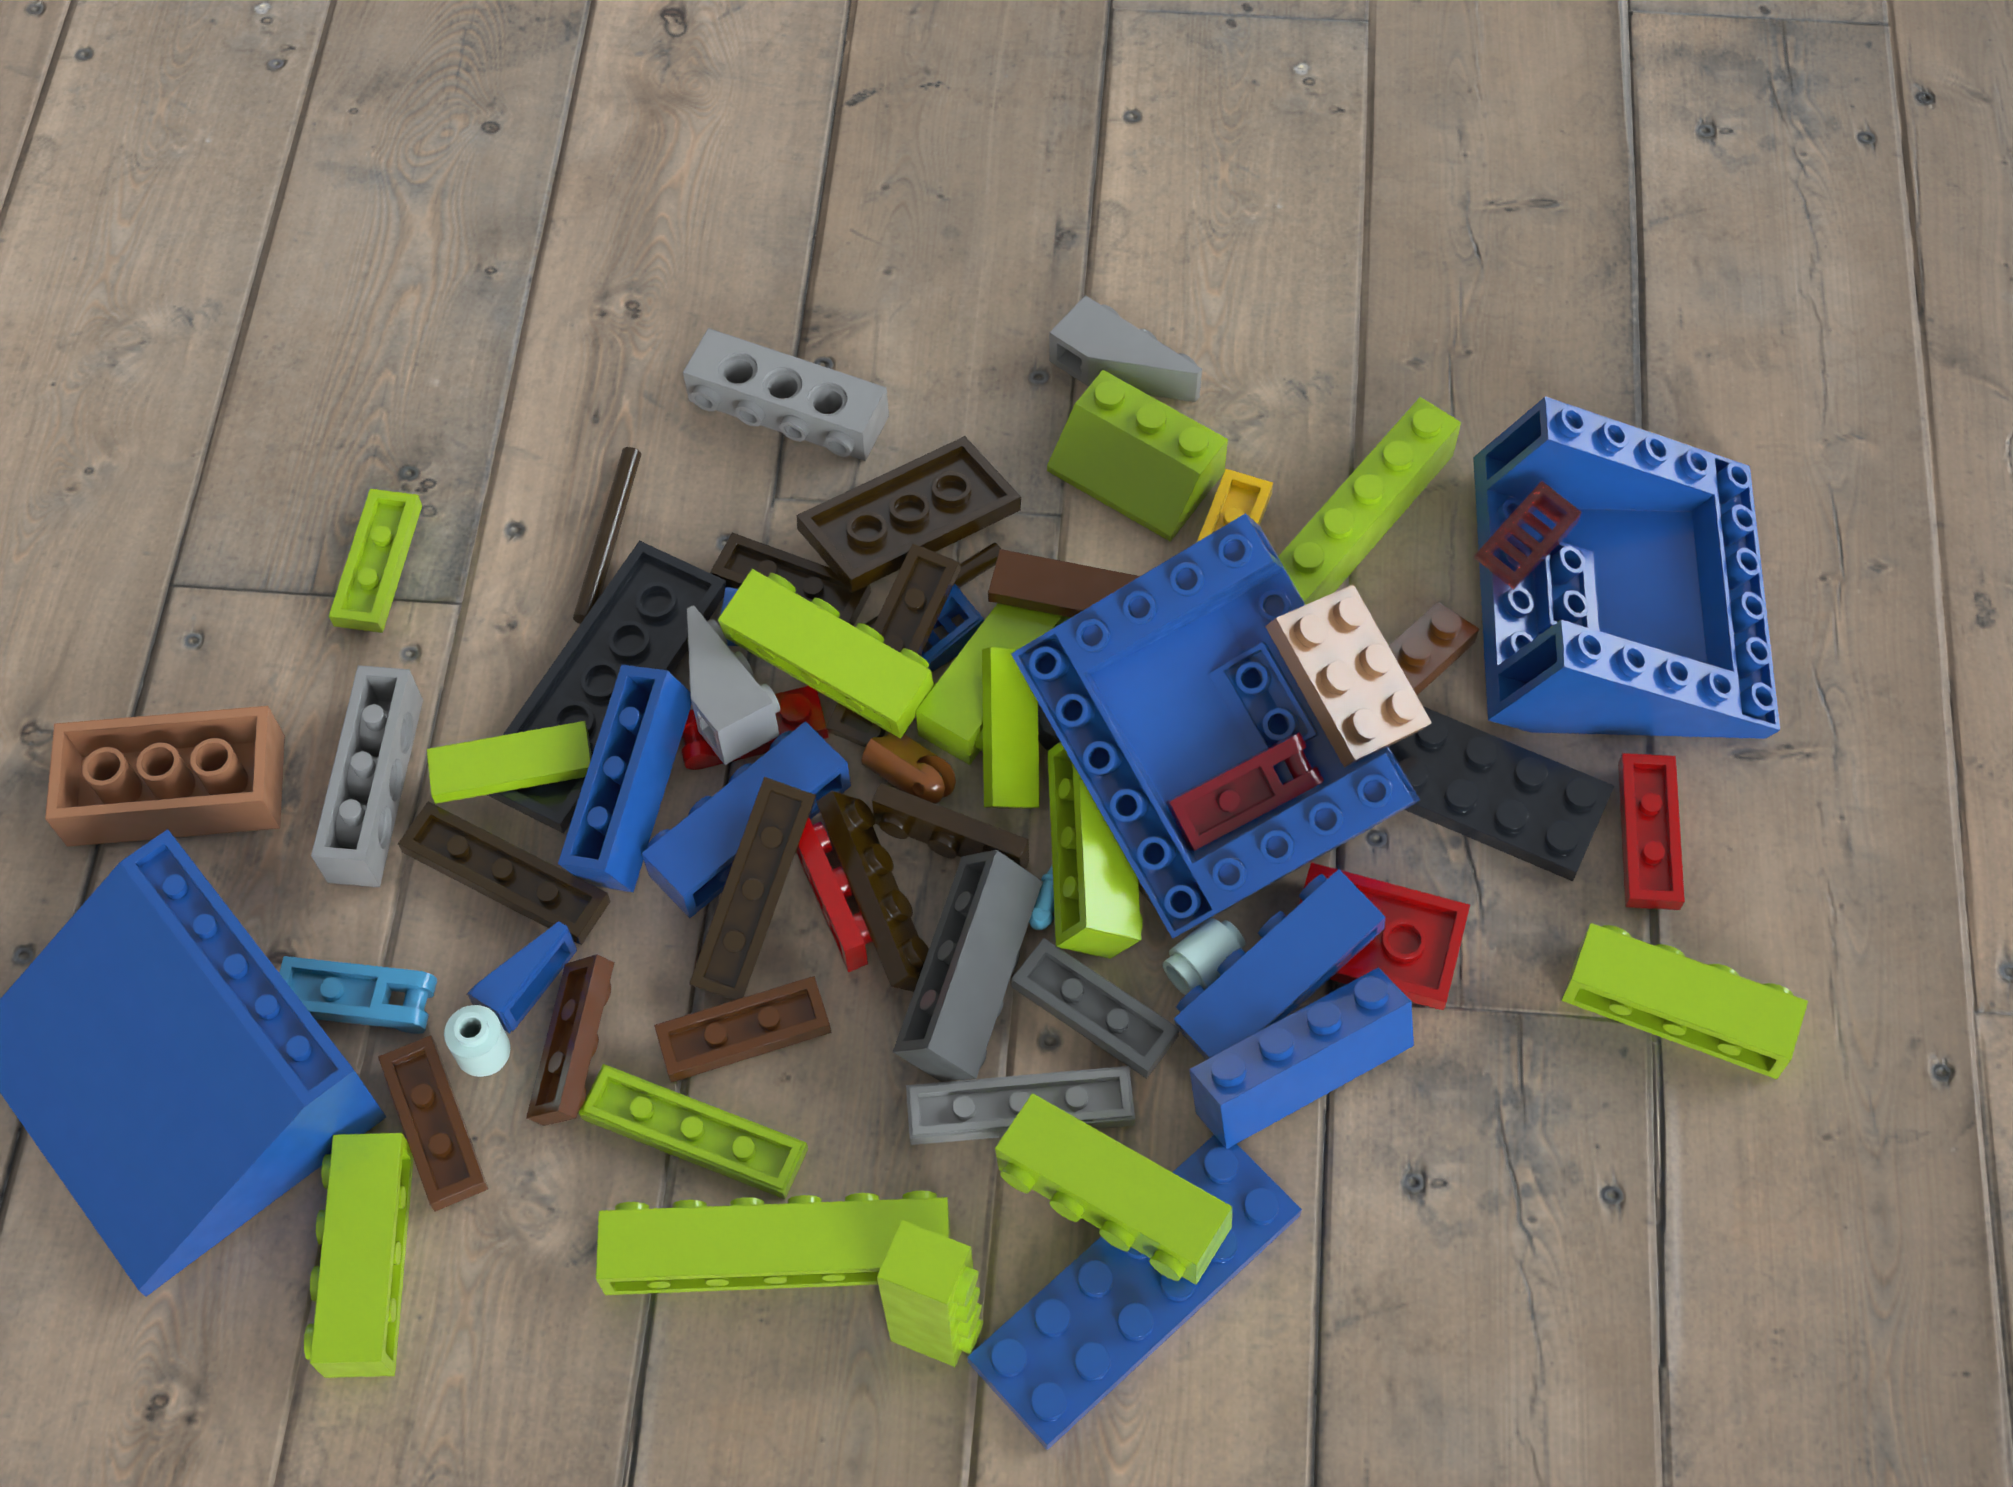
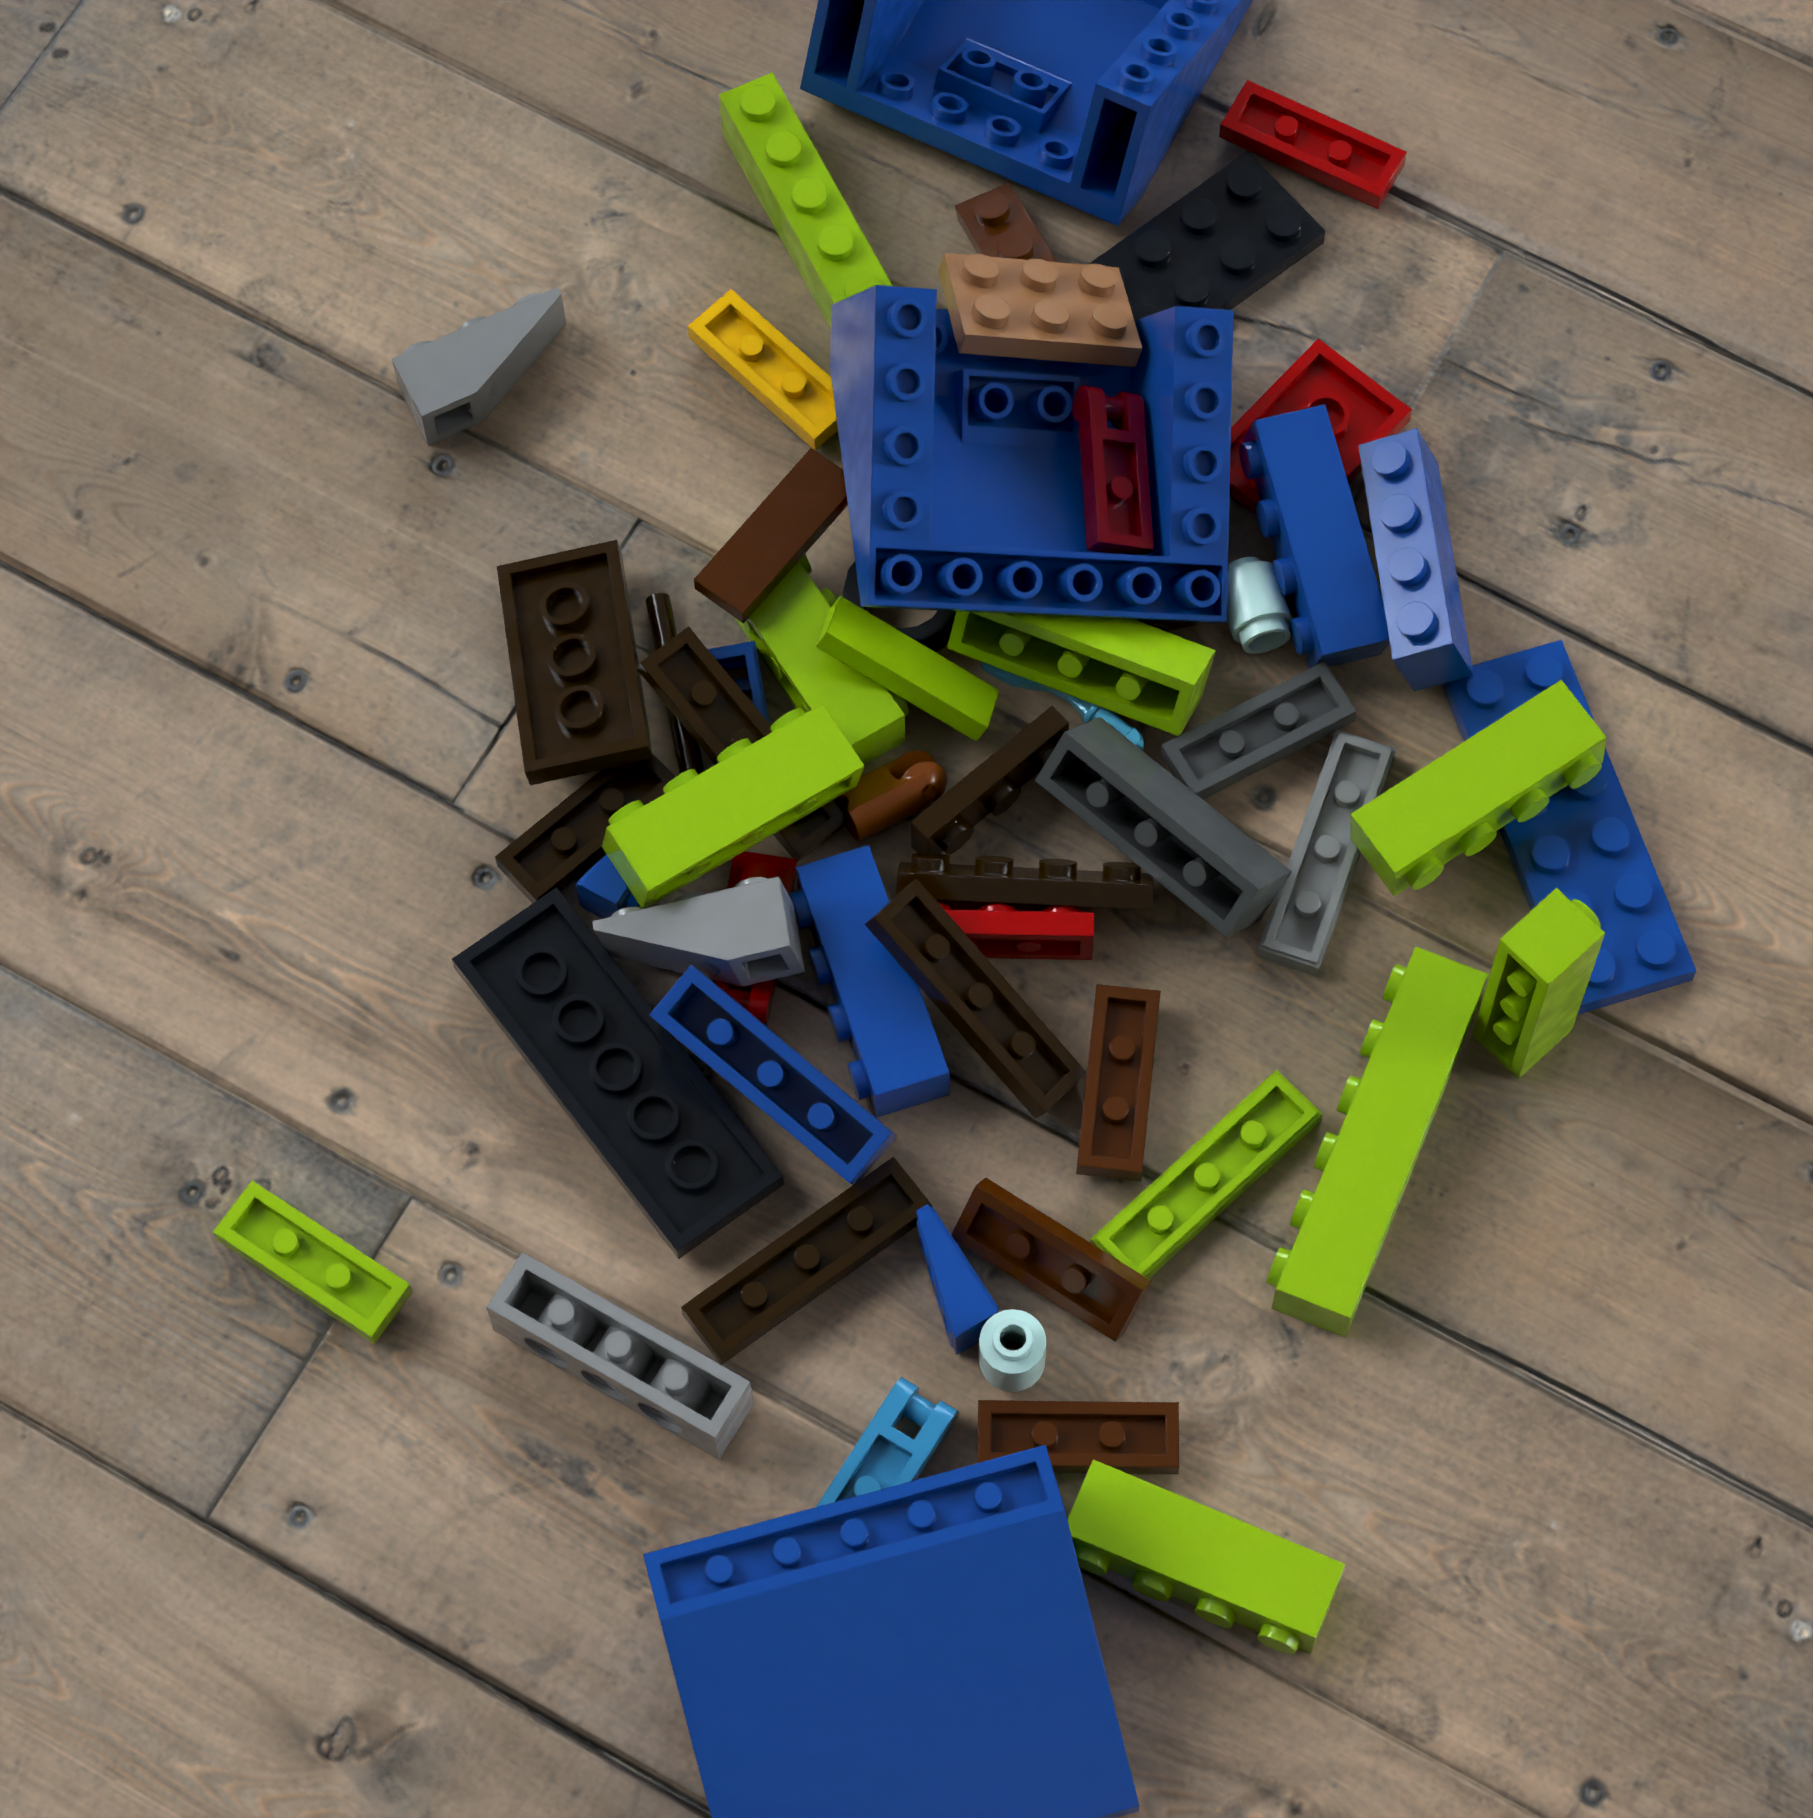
camera: 65 degrees left, 5 degrees up
(166, 773) = (504, 1582): nougat brick -> none
(509, 762) = (683, 1196): lime tile -> none
(608, 532) = (412, 998): dark brown bar -> none
(770, 375) = (342, 697): light grey brick -> none
(1138, 455) = (620, 405): lime slope -> none
(1552, 506) = (941, 34): clear red slope -> none
(1685, 1000) = (1504, 205): lime brick -> none

